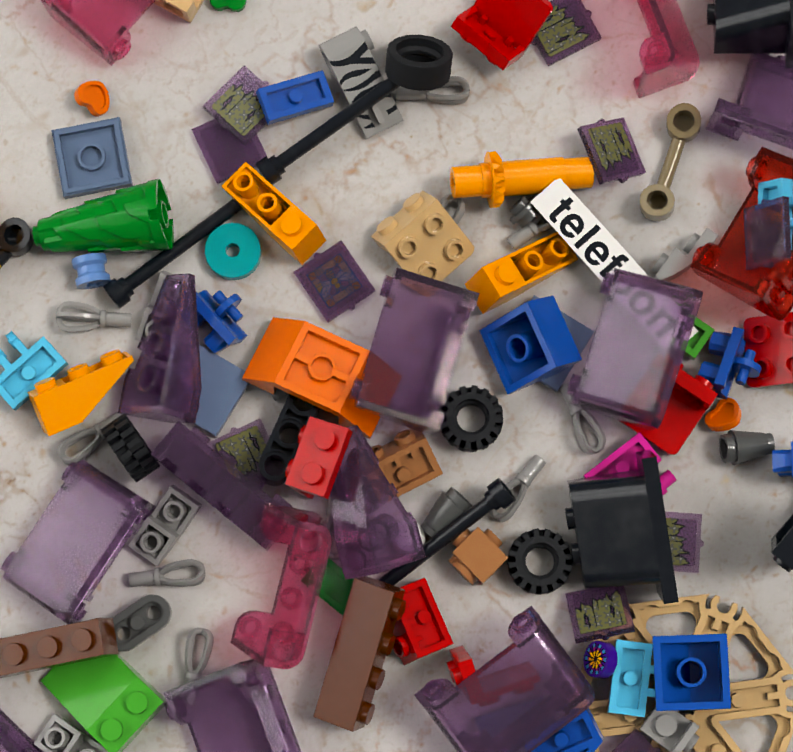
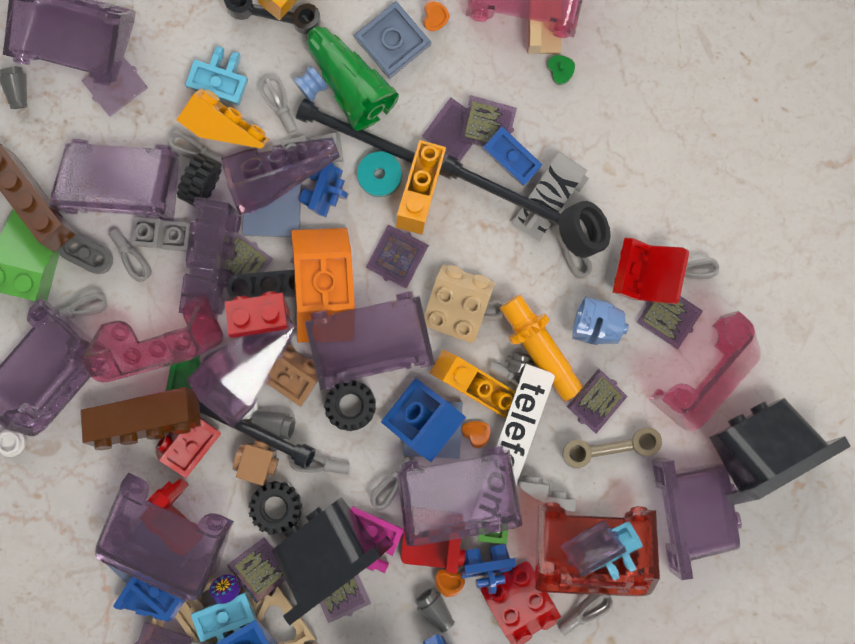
camera: 60 degrees right, 5 degrees up
(527, 102) = (599, 322): none -> medium blue helmet
(576, 297) = (477, 433): none -> orange piece

